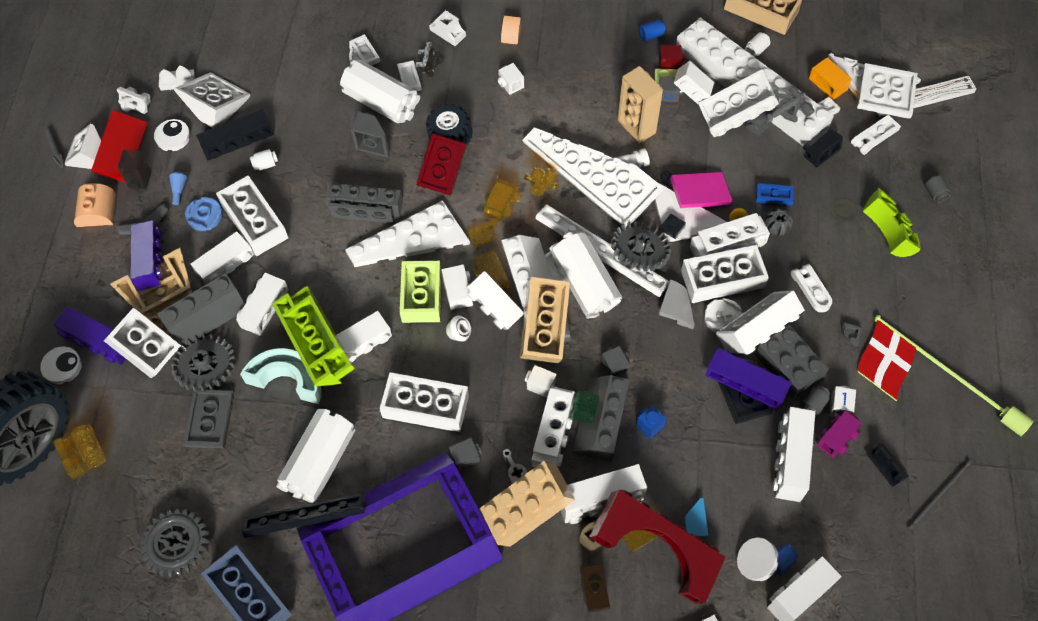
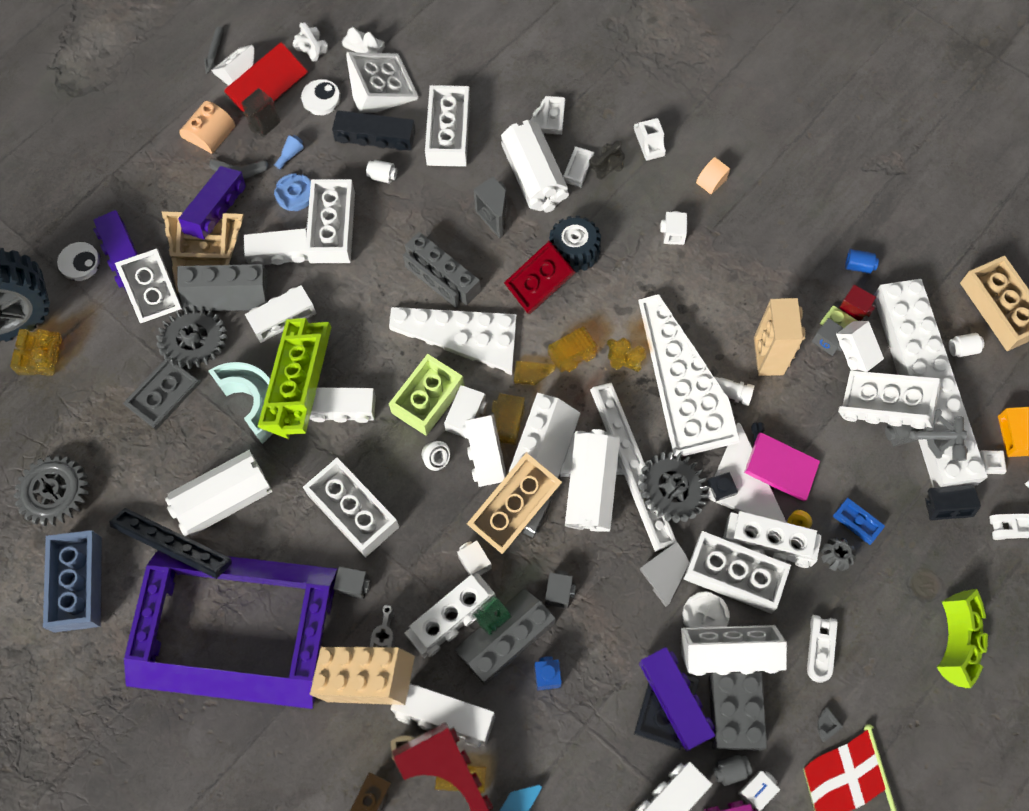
camera: 35 degrees right, 5 degrees up
(292, 99) = (447, 126): none -> white brick

